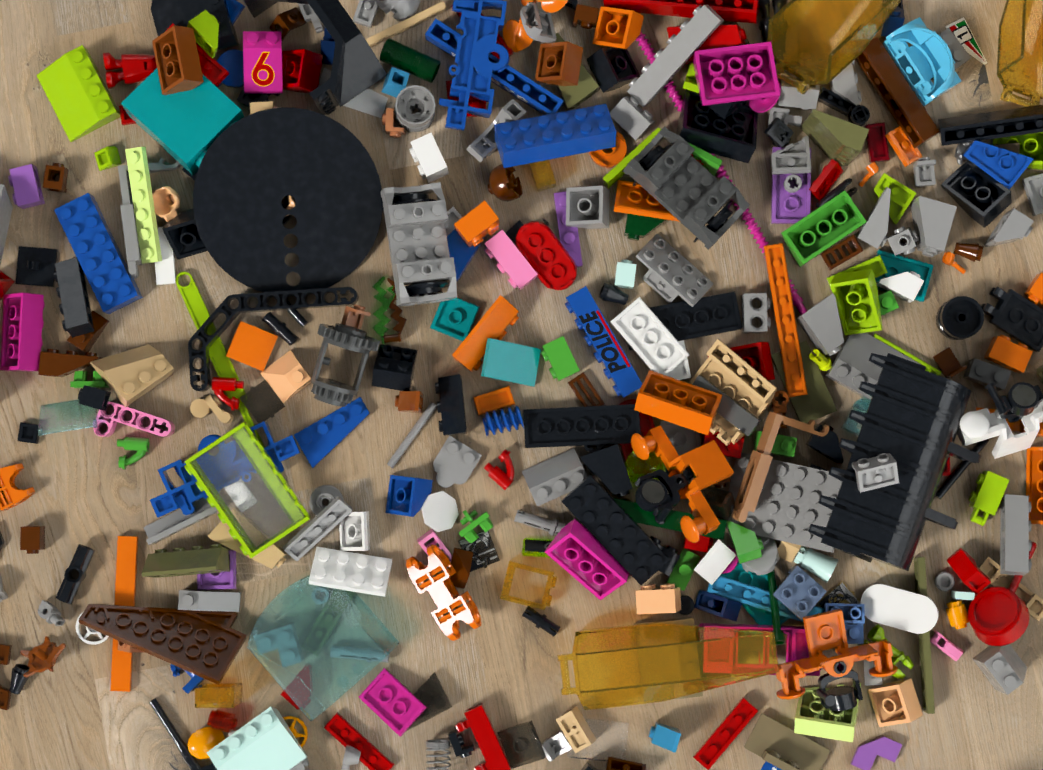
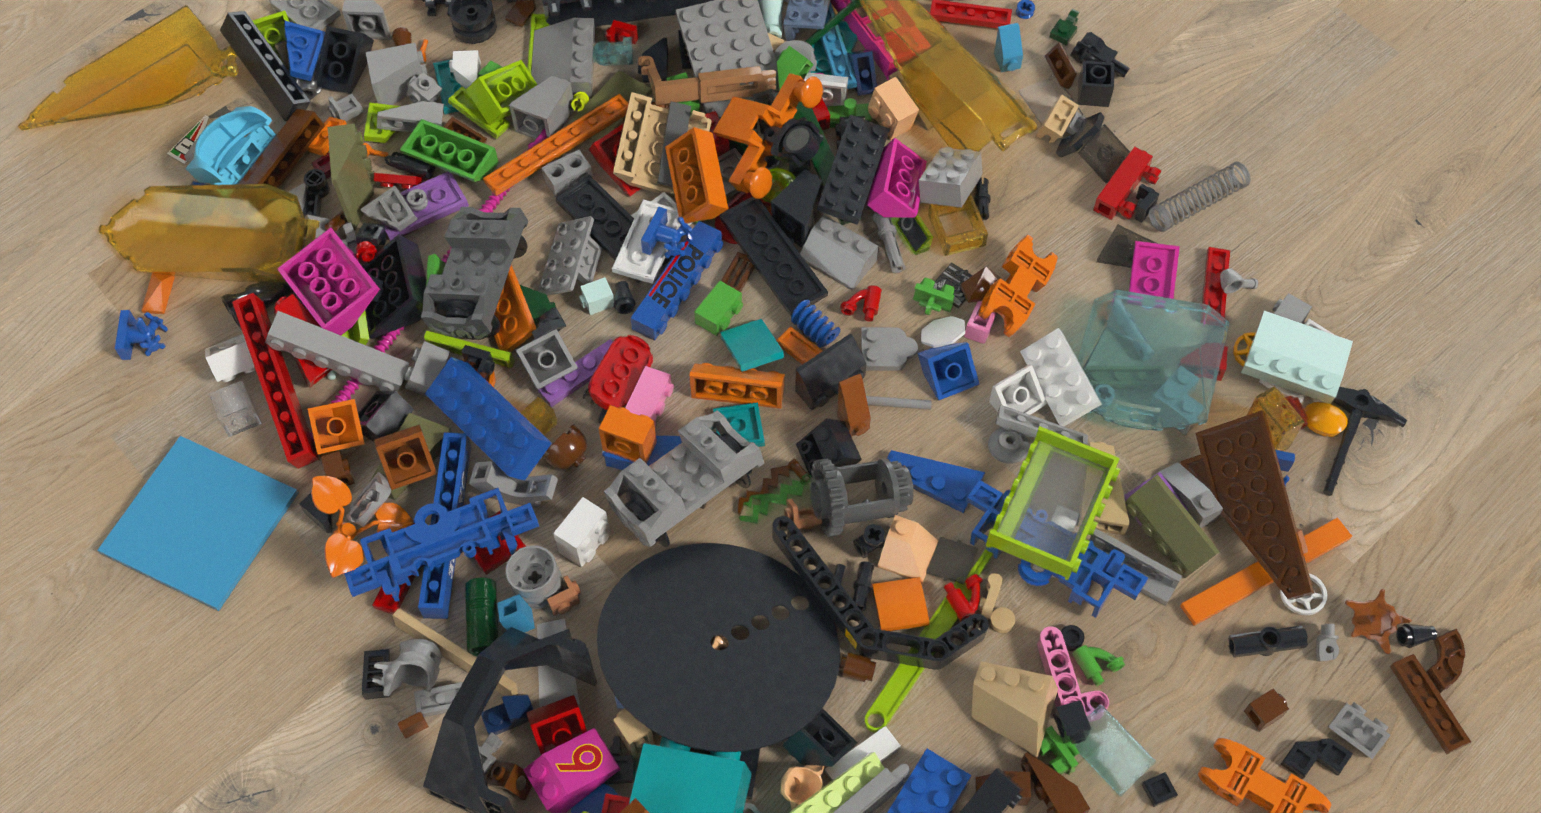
camera: 125 degrees left, 25 degrees down
(160, 446) = (1073, 637): none -> black tile
(224, 288) = (857, 667): none -> reddish brown brick
(305, 351) = (870, 540): none -> black connector
(546, 744) = (1072, 143): none -> black tile
(565, 602) = (950, 177): none -> light grey brick
(610, 223) = (548, 322): none -> black bracket
(615, 156) = (479, 359): none -> black bracket
(639, 349) = (660, 232): none -> blue piece
(762, 120) = (365, 251): none -> red plate
(802, 108) = (337, 221): none -> reddish brown axle

